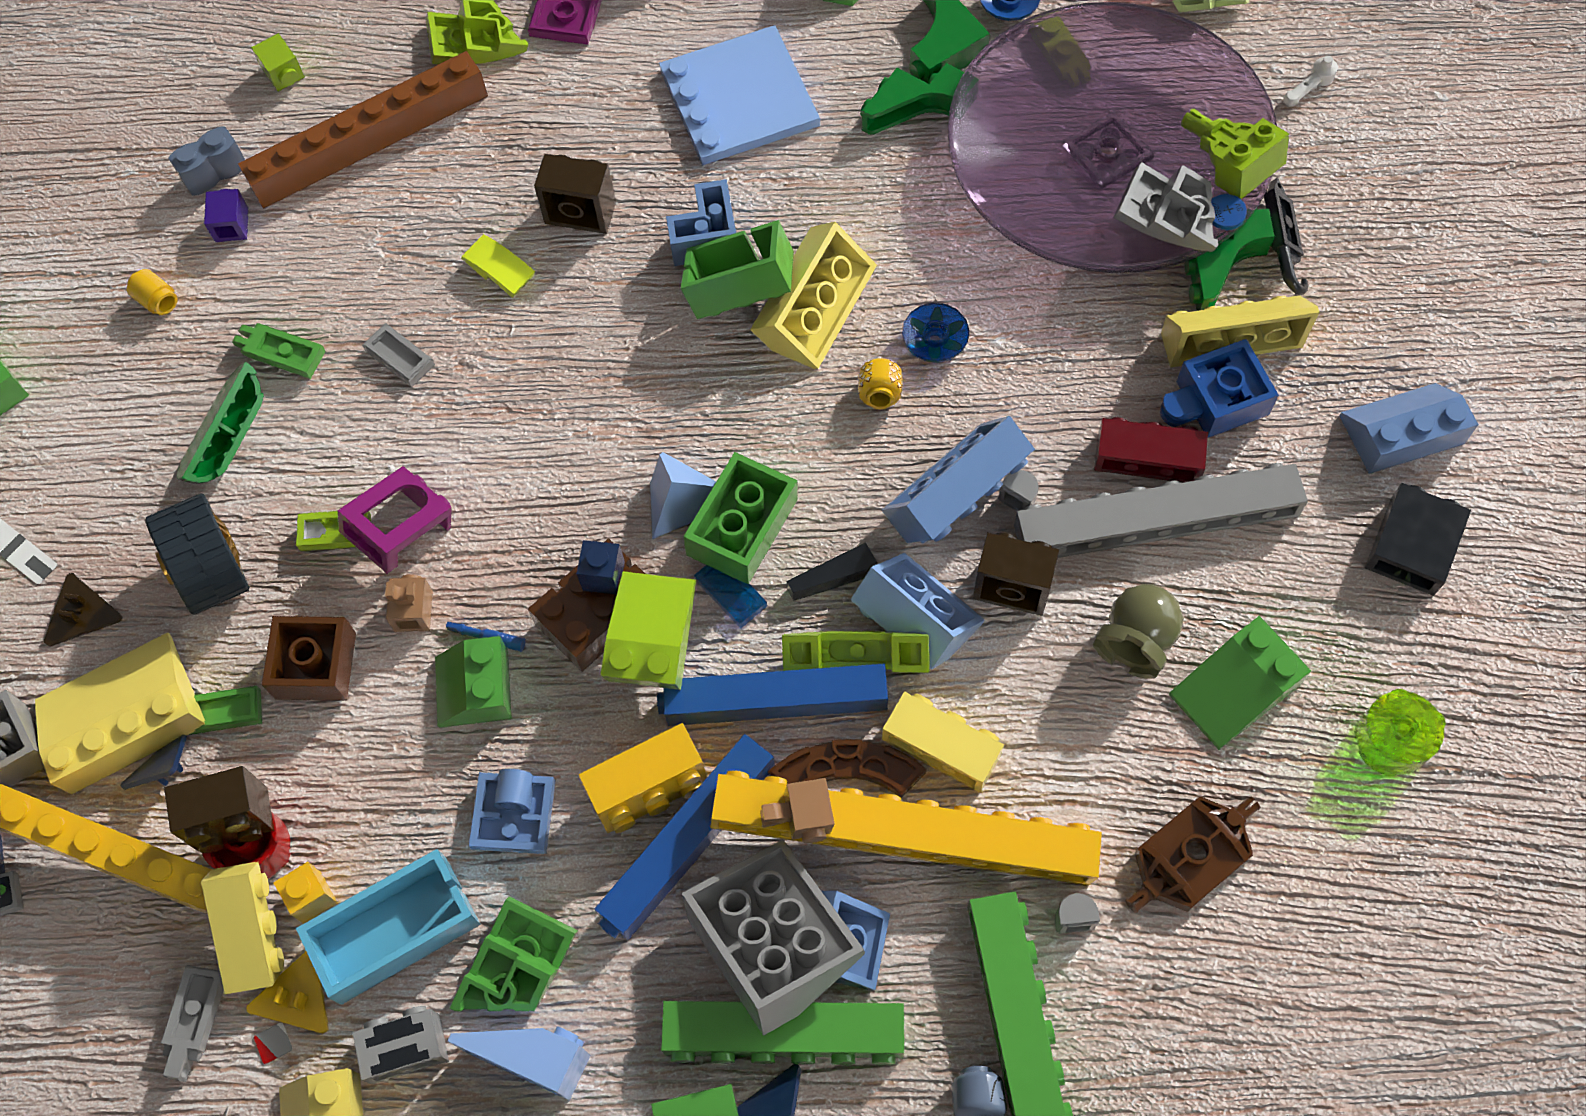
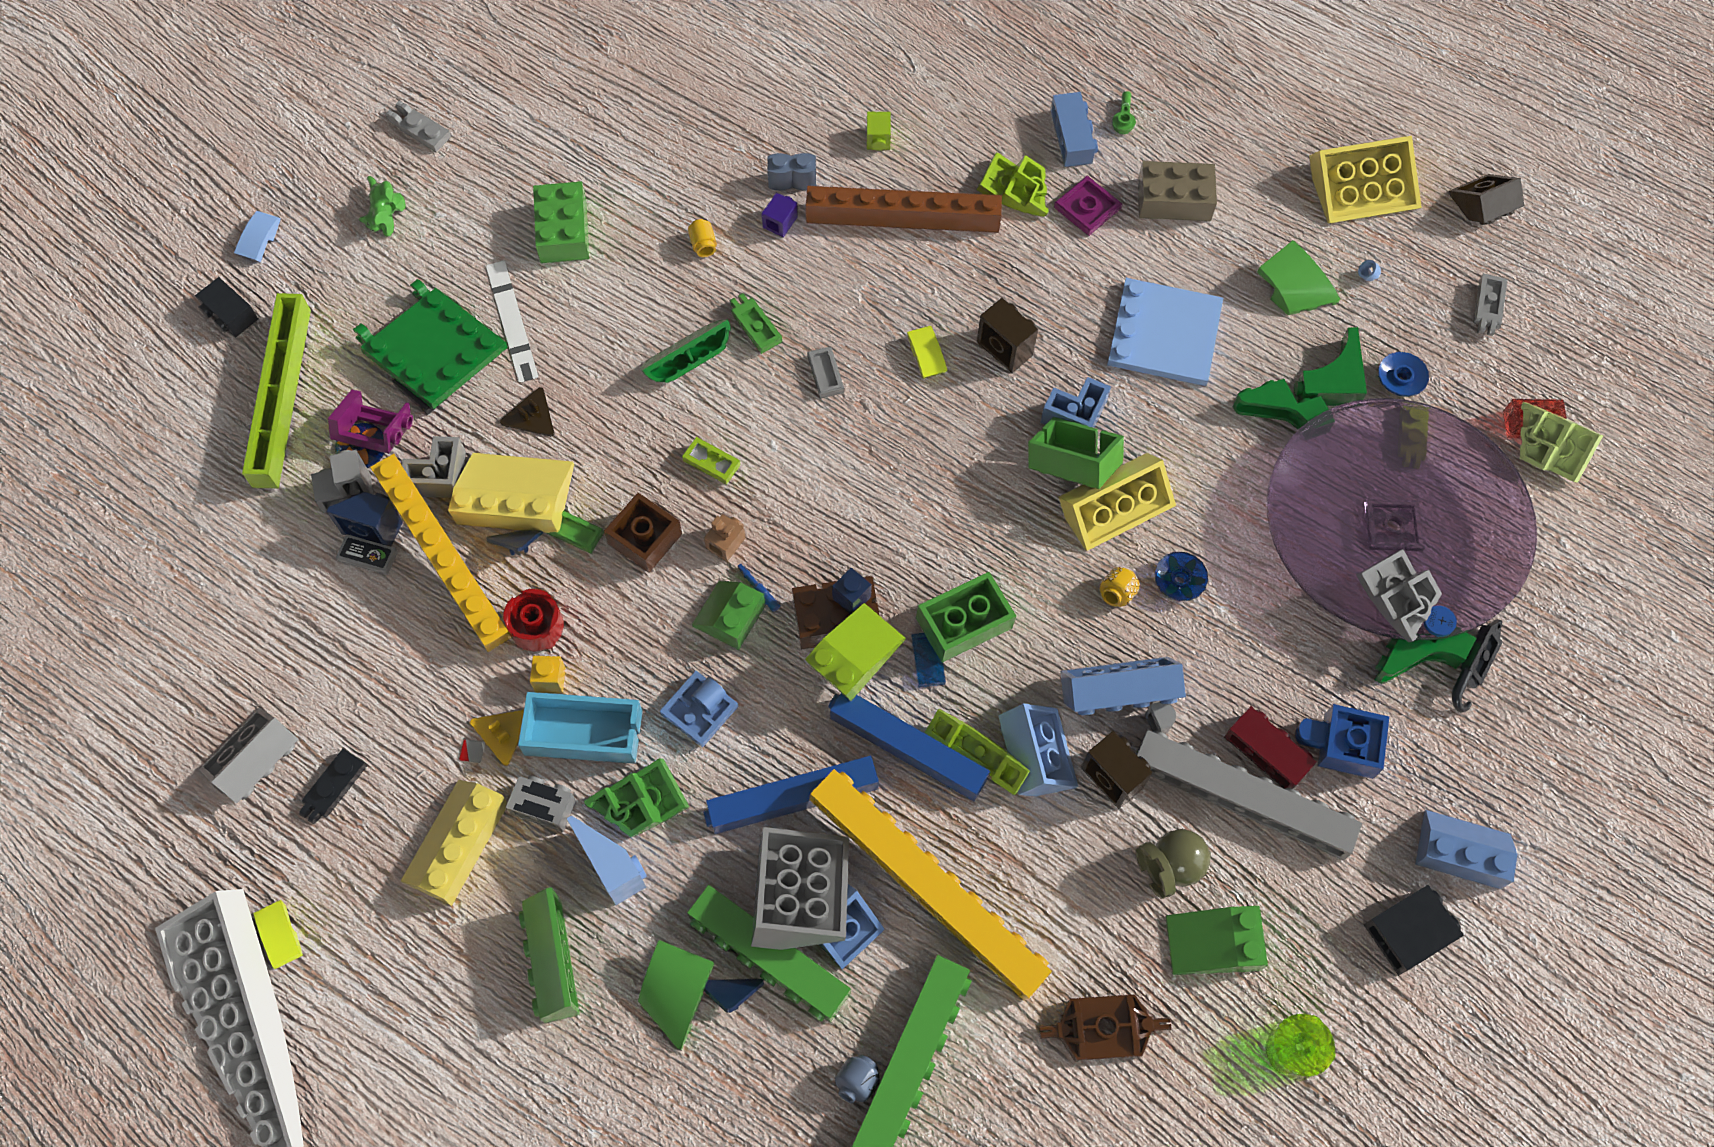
camera: 30 degrees right, 0 degrees up
(191, 1020) = (436, 705): light grey hinge -> none
(197, 554) = (619, 424): black wheel -> none
(219, 809) = (529, 591): dark brown brick -> none
(242, 927) = (498, 670): light yellow brick -> none
(373, 542) = (727, 483): magenta panel -> none
(644, 779) = (789, 741): yellow brick -> none
(676, 494) = (936, 574): light blue slope -> none
(805, 808) = (870, 826): medium nougat brick -> none
(836, 572) = (1000, 691): black piece -> none
(852, 761) = (926, 816): reddish brown tile -> none
(943, 740) = (994, 845): light yellow brick -> none
(1076, 914) = (999, 1011): light grey brick -> none
(1239, 151) = (1478, 585): lime brick -> none
(1266, 325) = (1409, 714): light yellow slope -> none
(1321, 75) = (1594, 567): white piece -> none

